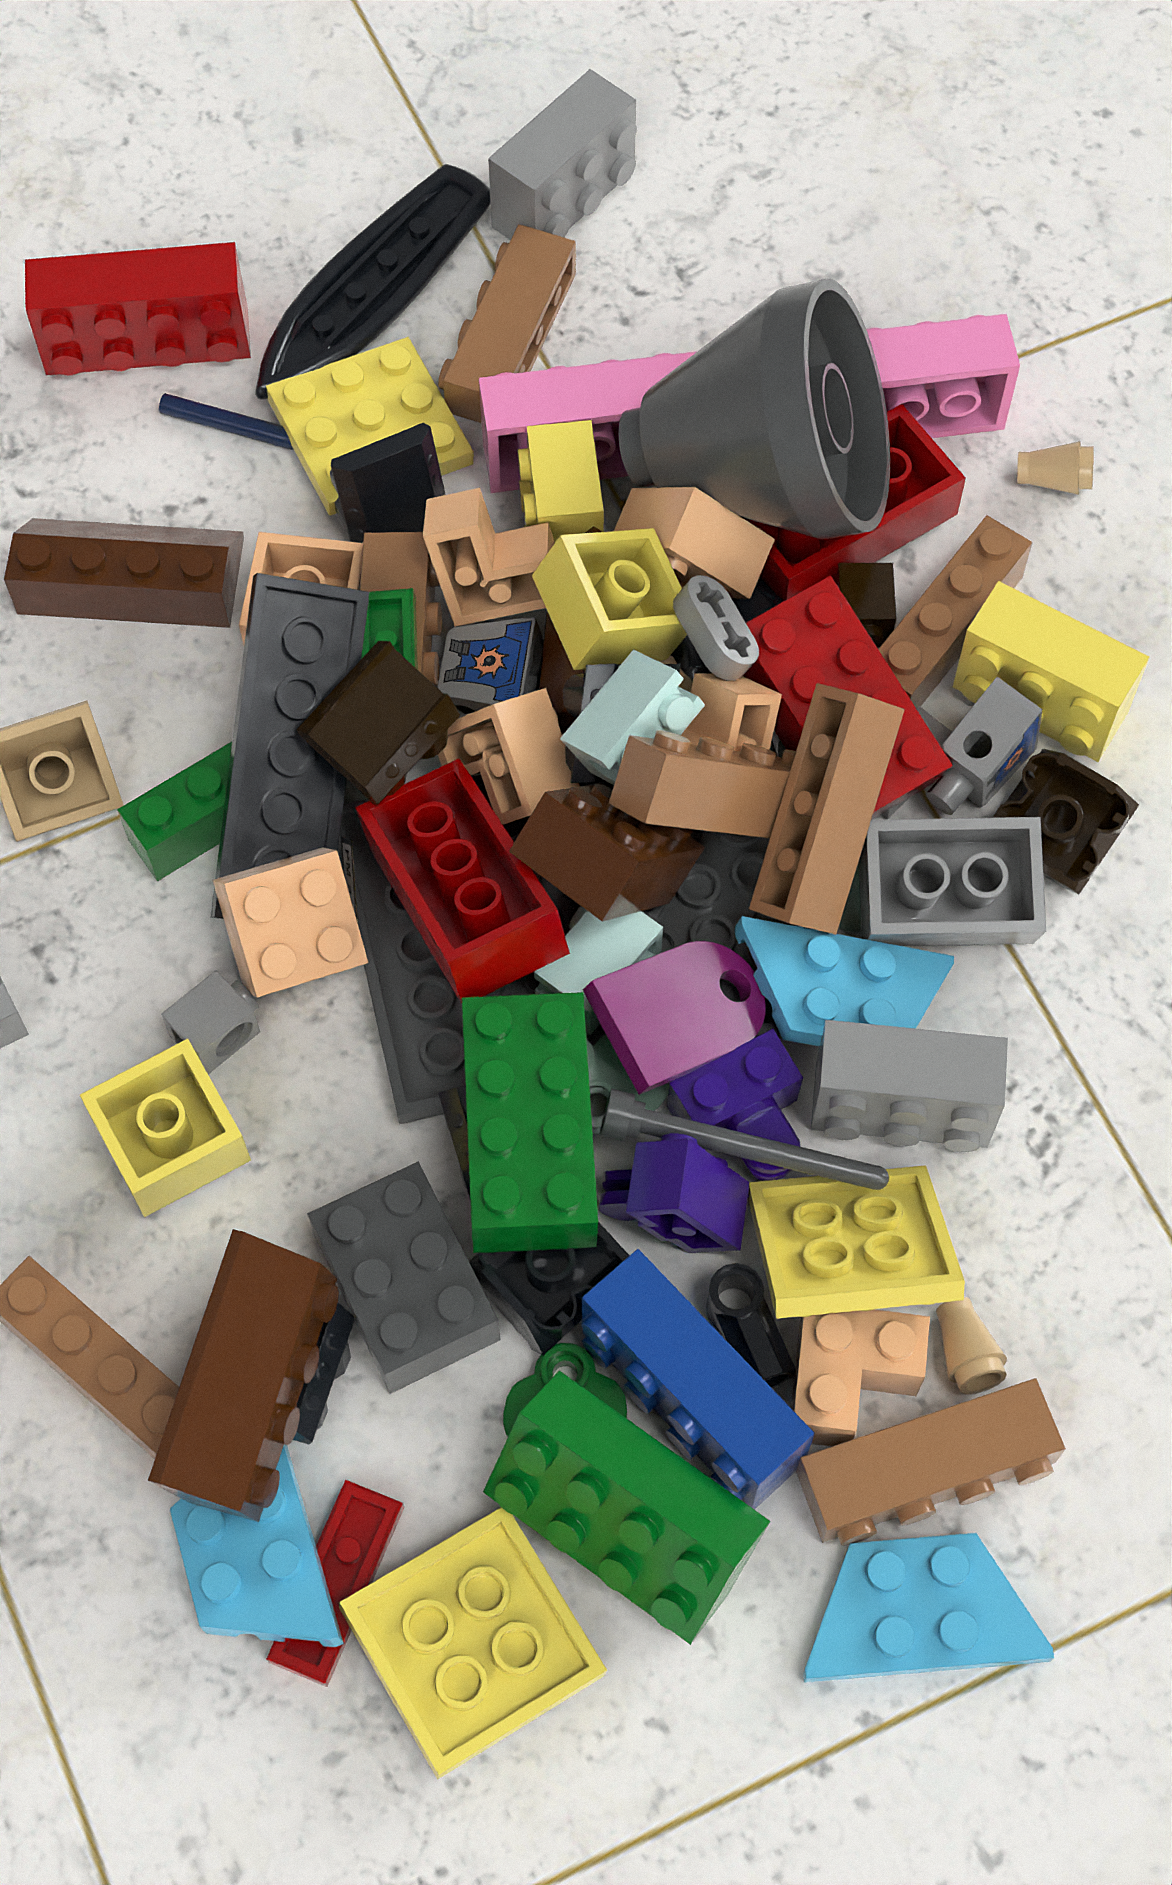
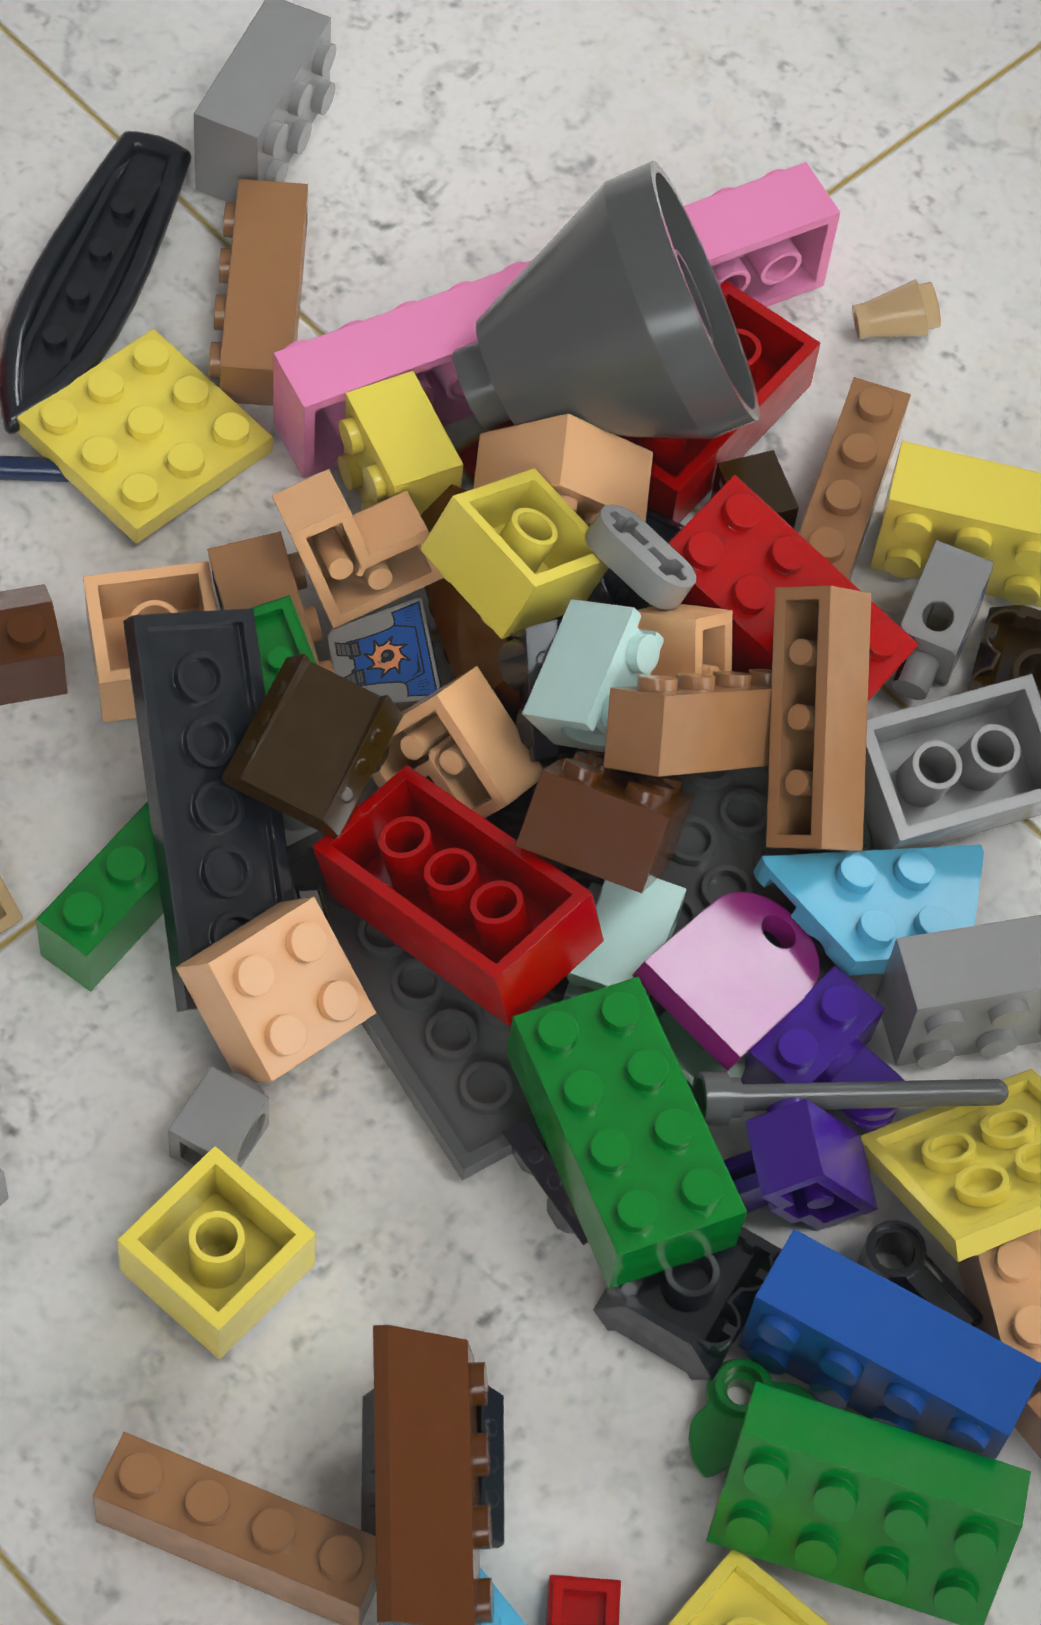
camera: 25 degrees left, 5 degrees down
(387, 483) = (205, 496): black slope -> none
(404, 1277) = (545, 1336): dark grey brick -> none

